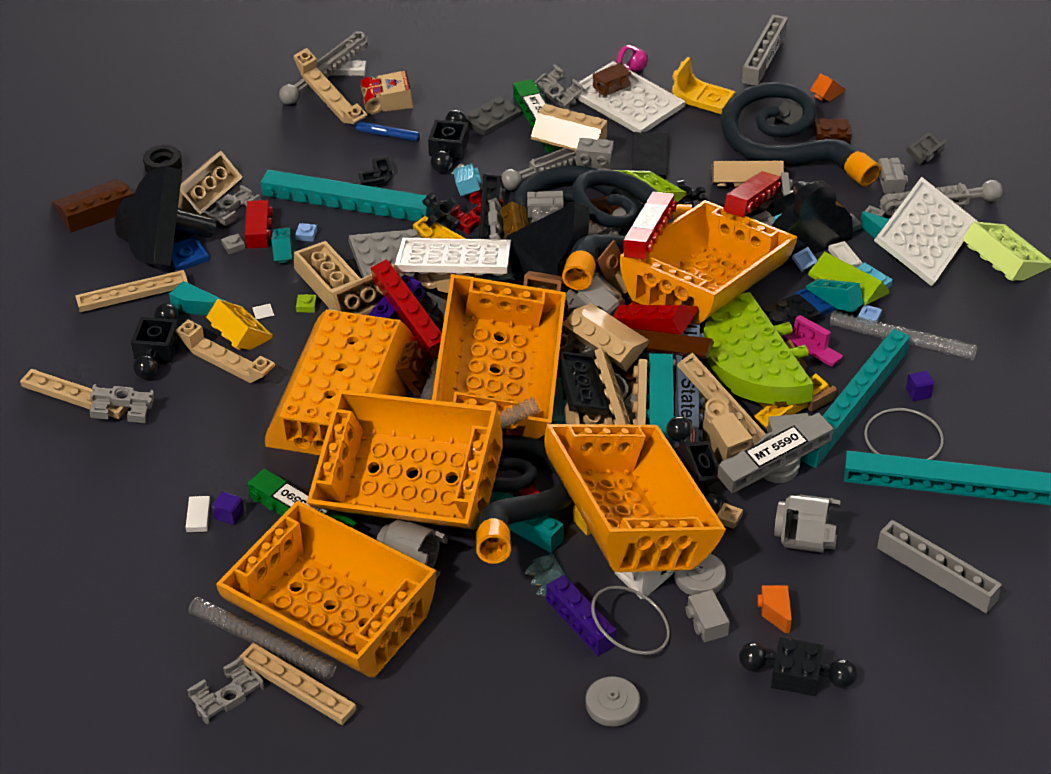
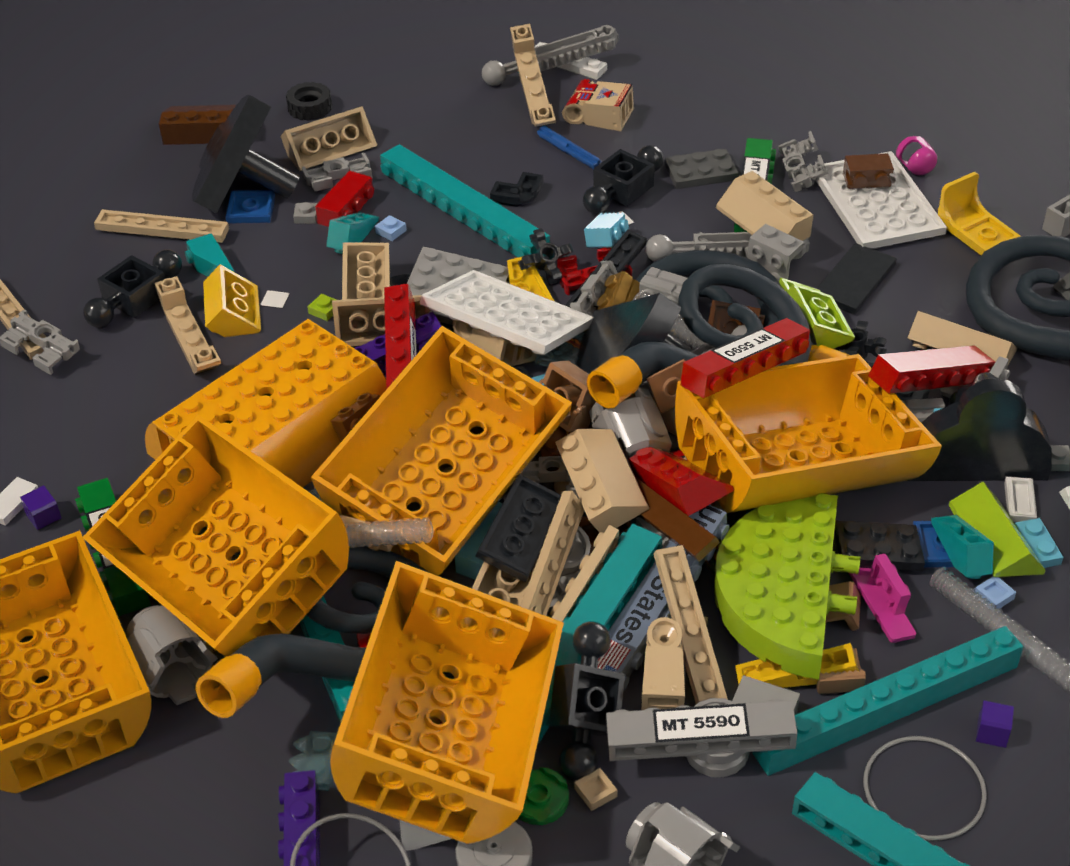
camera: 30 degrees right, 0 degrees up
(804, 259) = (956, 481): light blue plate -> none

